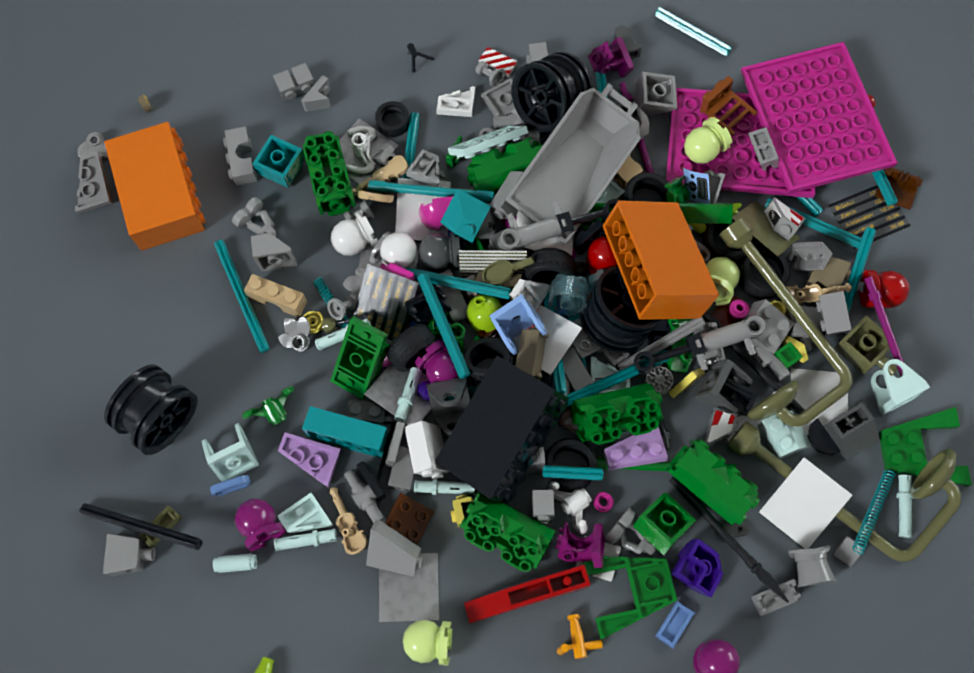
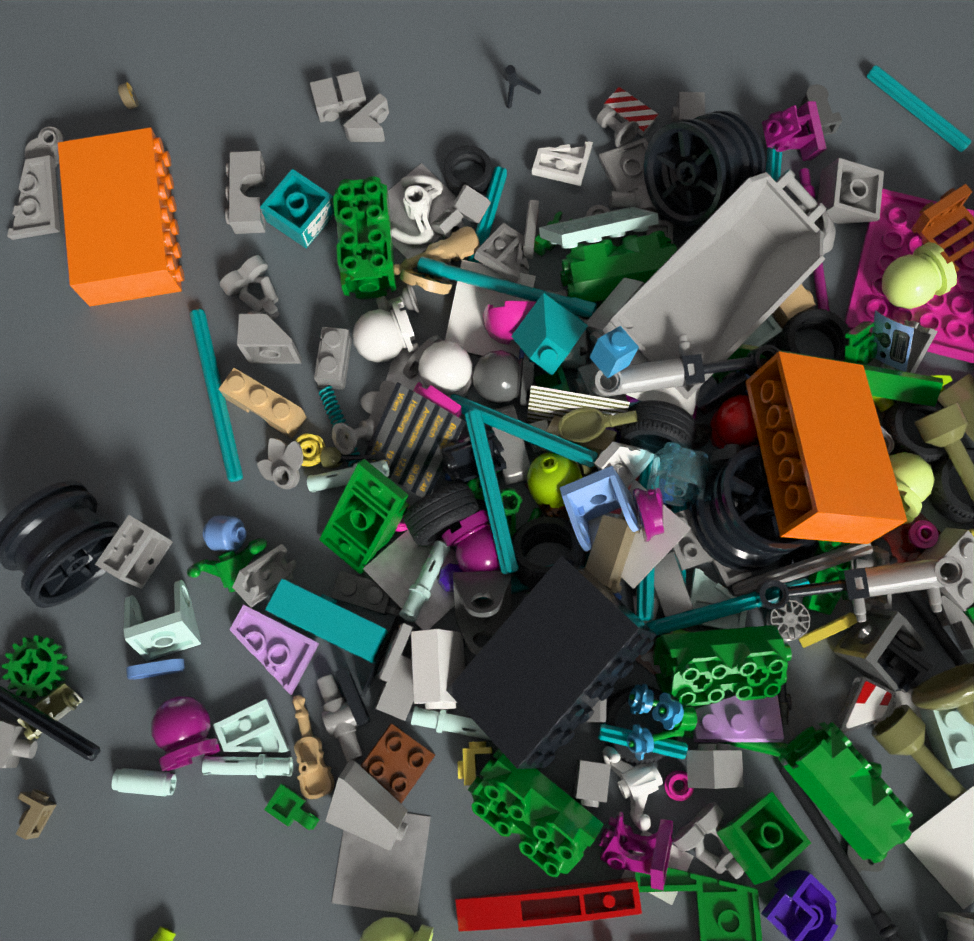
camera: 10 degrees right, 5 degrees up
(151, 504) = (34, 679): none -> green gear
(163, 599) = (35, 817): none -> dark tan bracket
(201, 416) = (146, 545): none -> light grey window
(263, 386) = (224, 533): none -> medium blue head
(295, 409) = (263, 576): none -> light grey hinge
(319, 257) = (333, 358): none -> light grey brick
(339, 561) = (287, 806): none -> green plate
(398, 140) = (471, 204): none -> light grey slope
(442, 150) = (530, 229): none -> light grey tile
(509, 217) = (614, 351): none -> dark azure brick
(552, 320) = (649, 511): none -> magenta hat
(583, 446) = (667, 711): none -> dark azure plant
(624, 483) = (714, 767): none -> light grey brick

